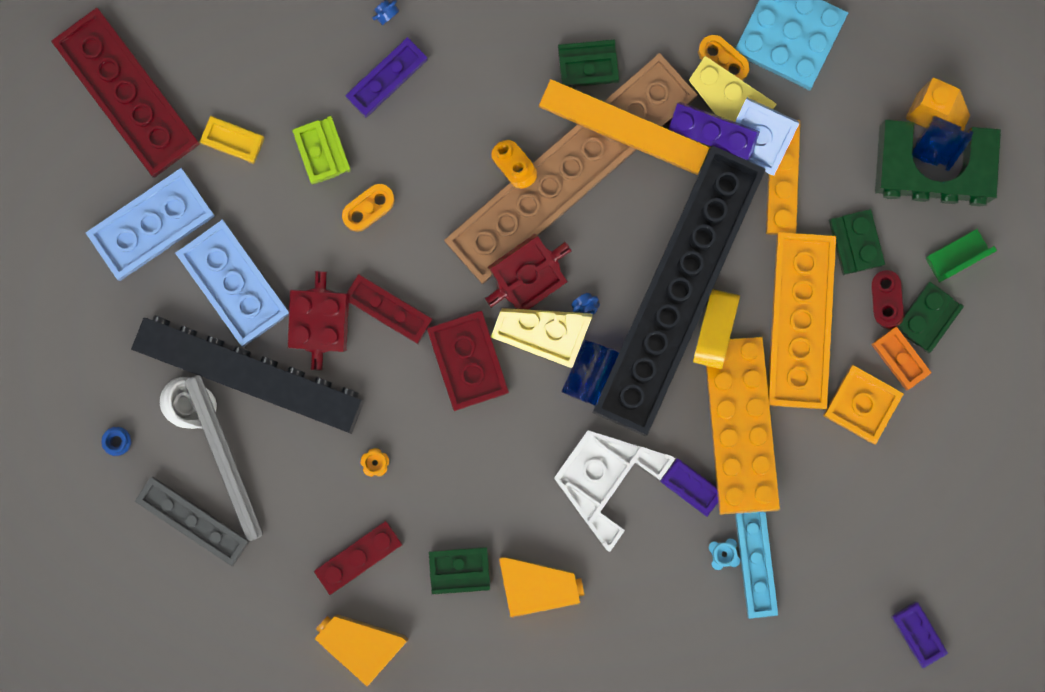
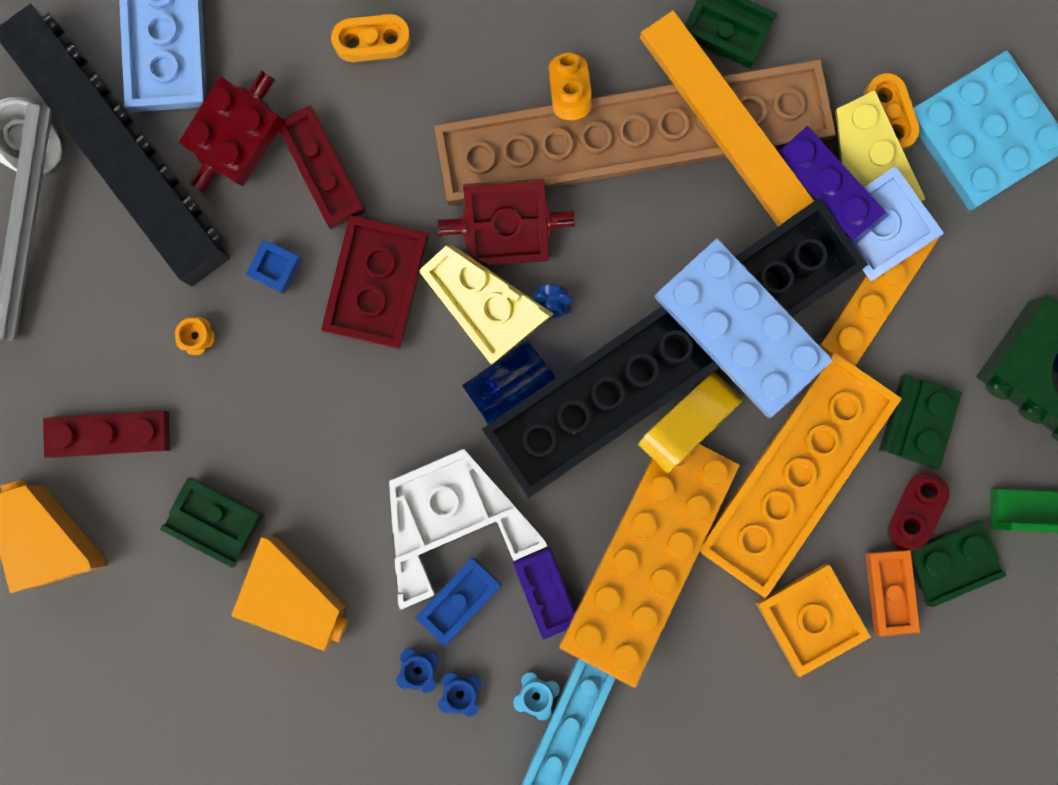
camera: 30 degrees right, 0 degrees up
(398, 389) = (273, 266): none -> blue plate
(641, 525) = (458, 601): none -> blue plate
(650, 584) = (408, 677): none -> blue plate
(679, 573) = (452, 703): none -> blue plate
(713, 254) = (743, 328): none -> light blue plate

